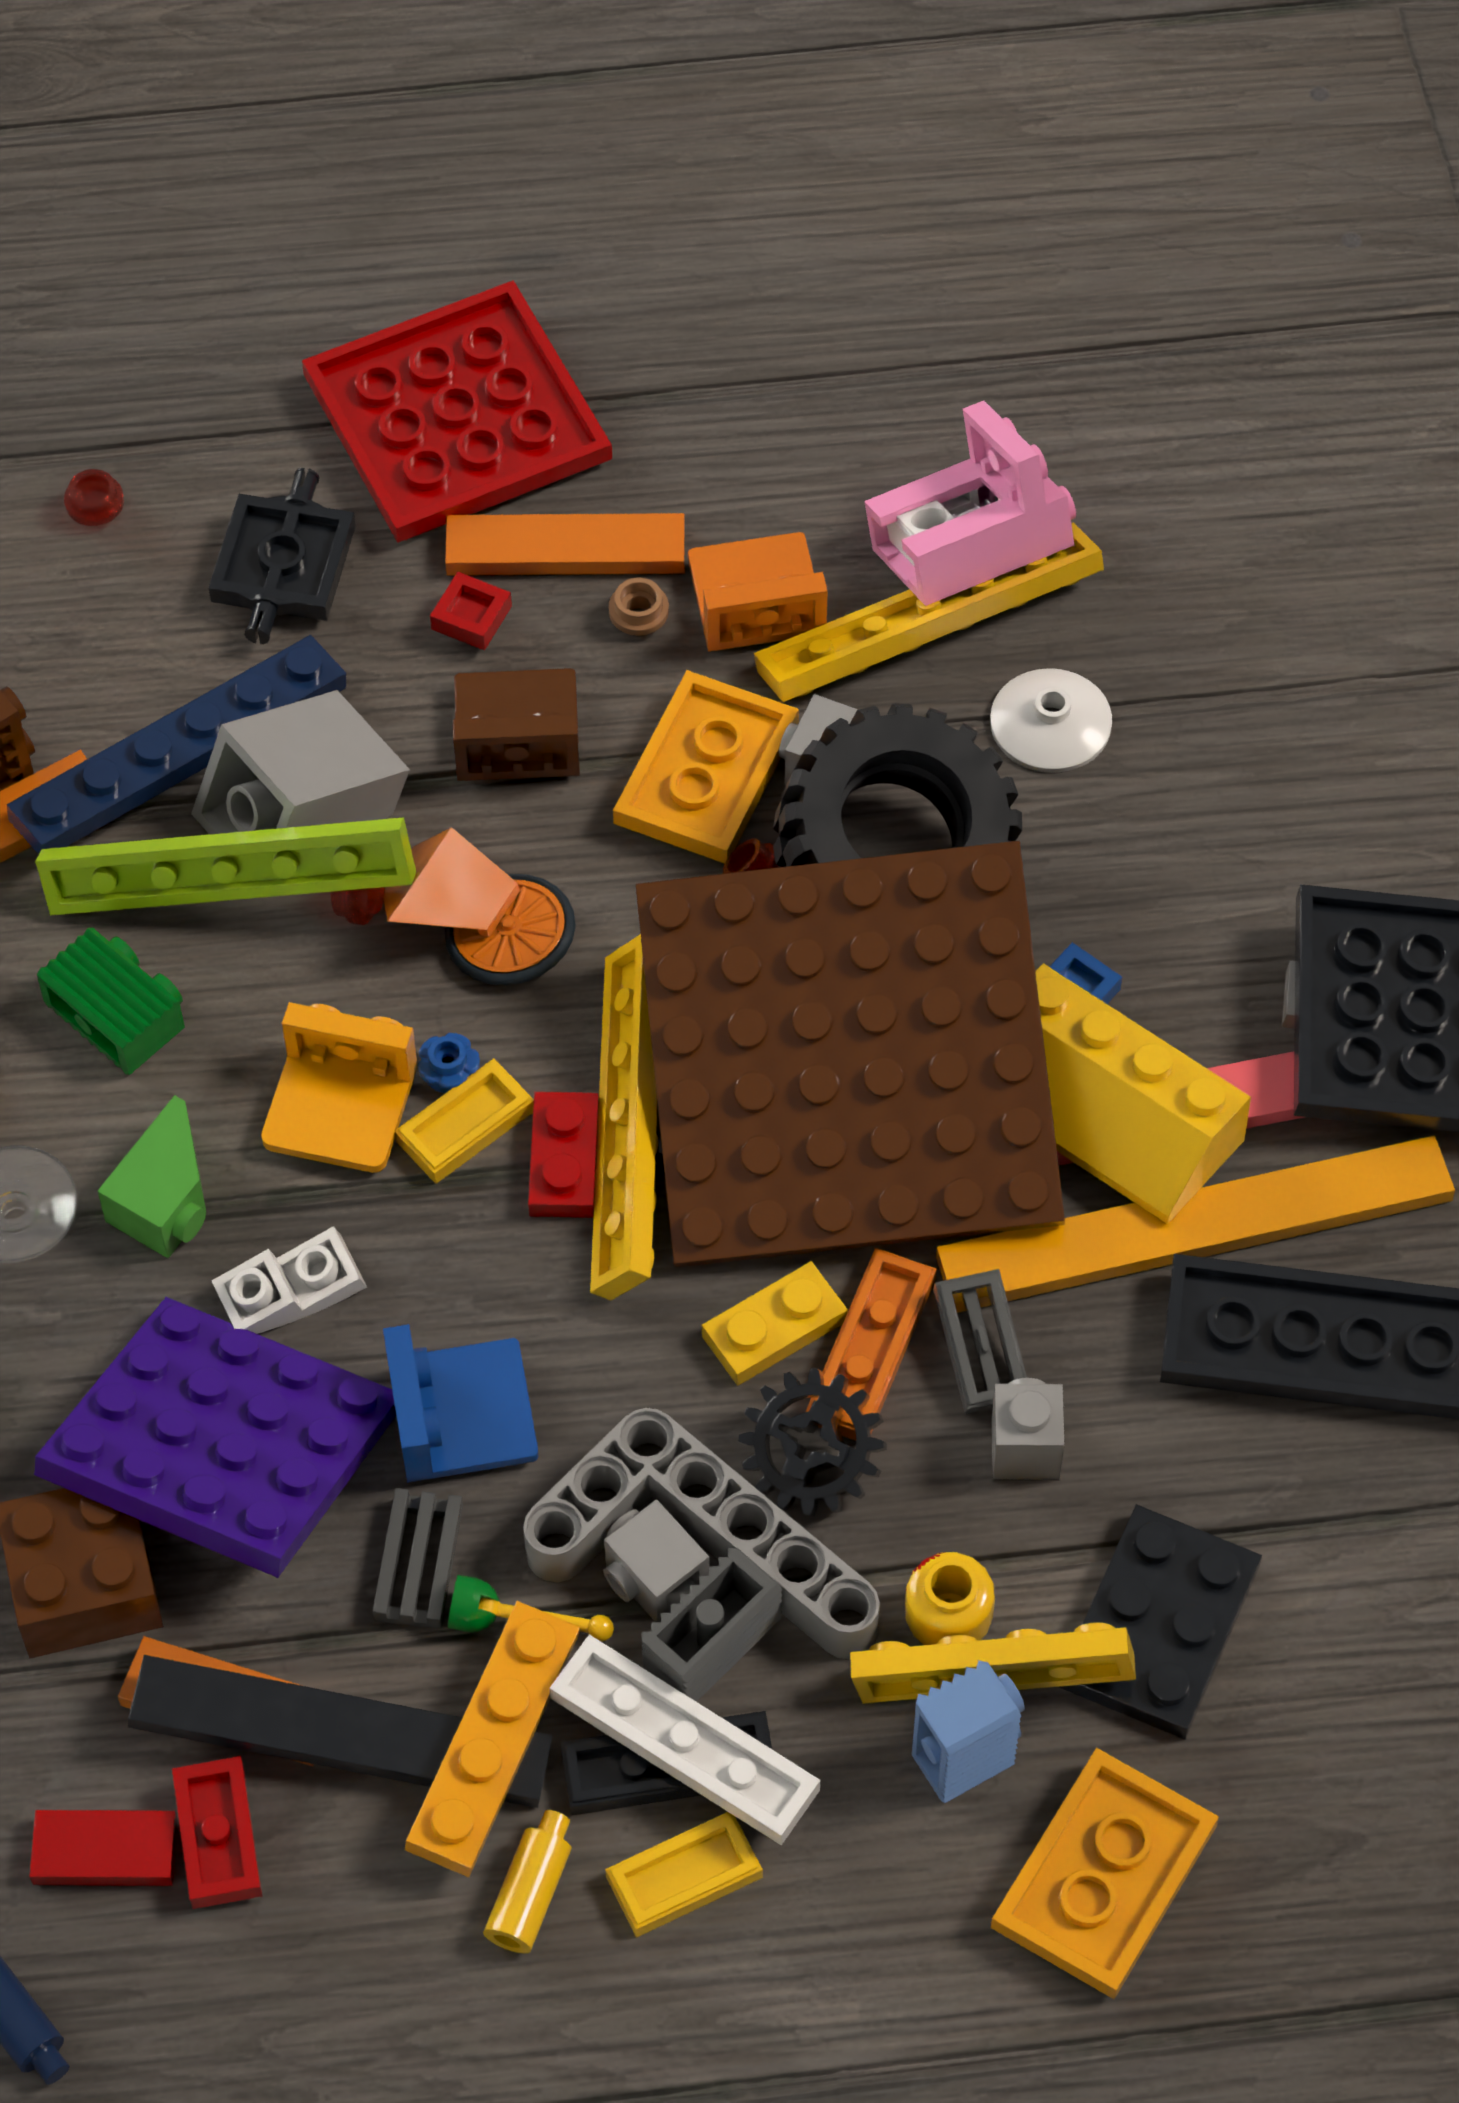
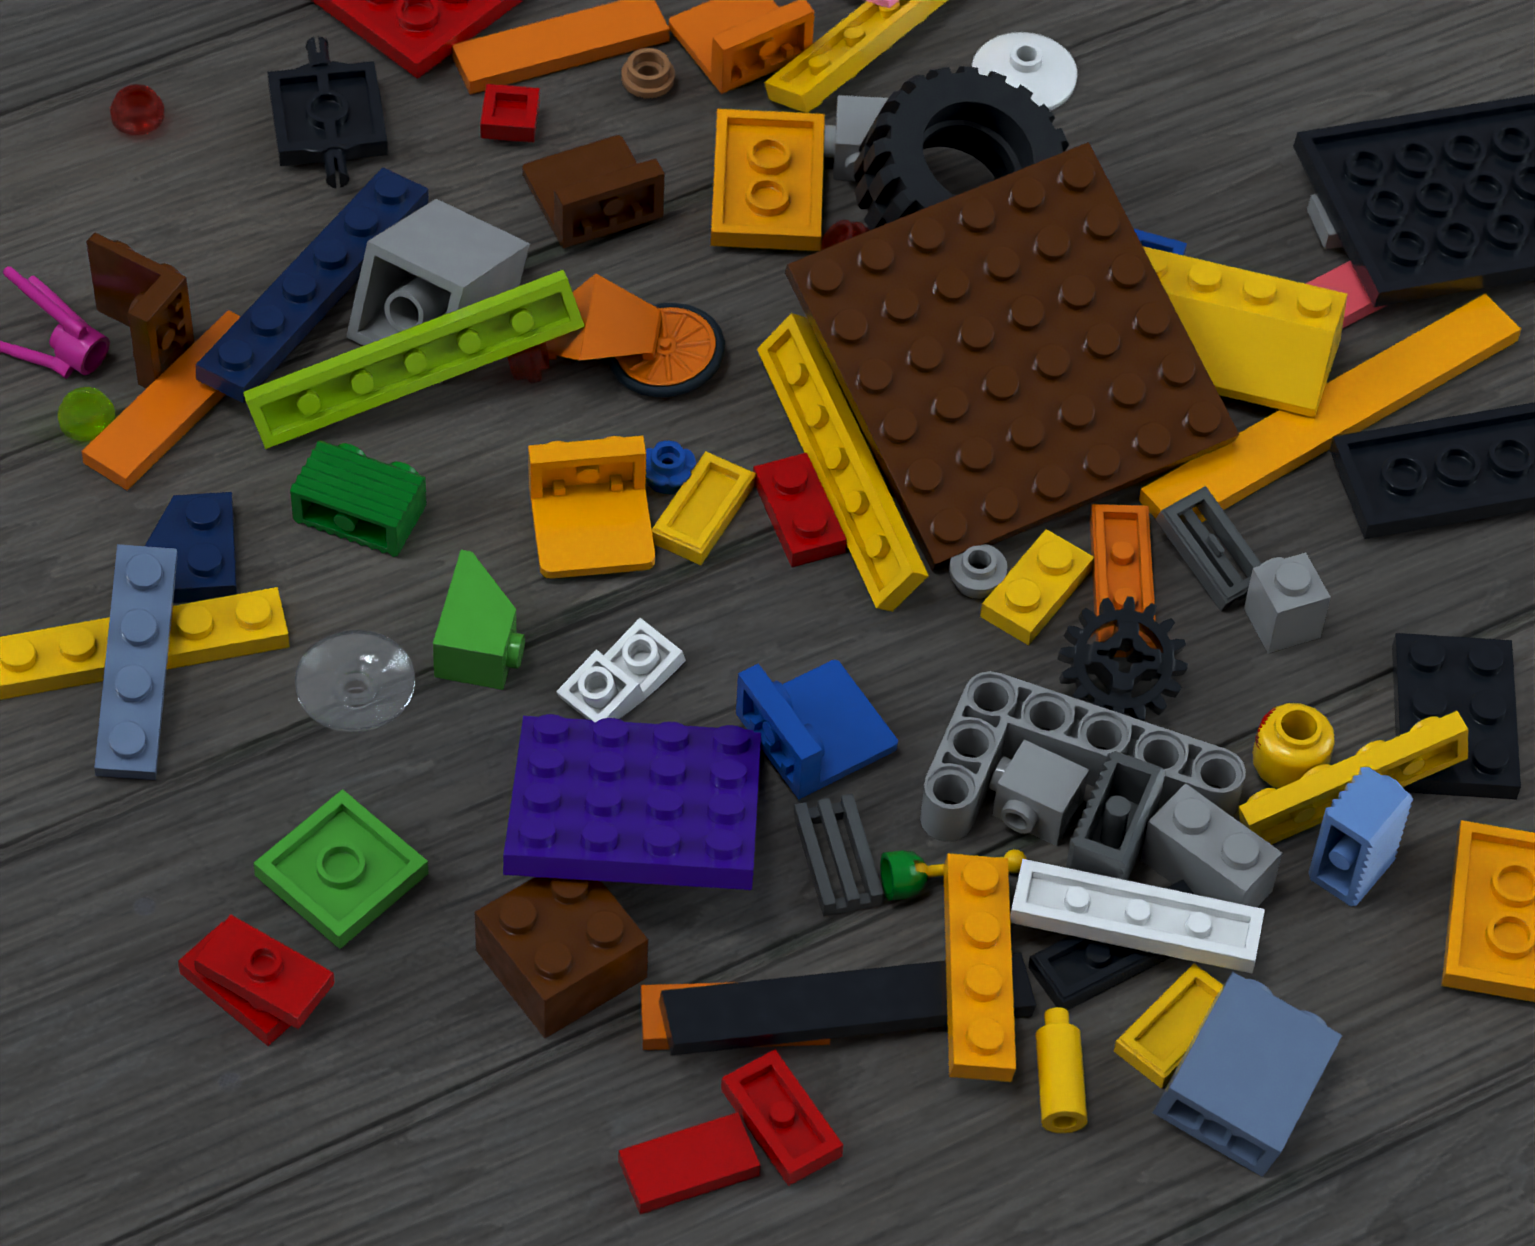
camera: 25 degrees left, 5 degrees down
(715, 1299) = (978, 582): none -> light grey plate
(720, 1956) = (1248, 1073): none -> sand blue brick
(802, 1695) = (1209, 850): none -> light grey brick

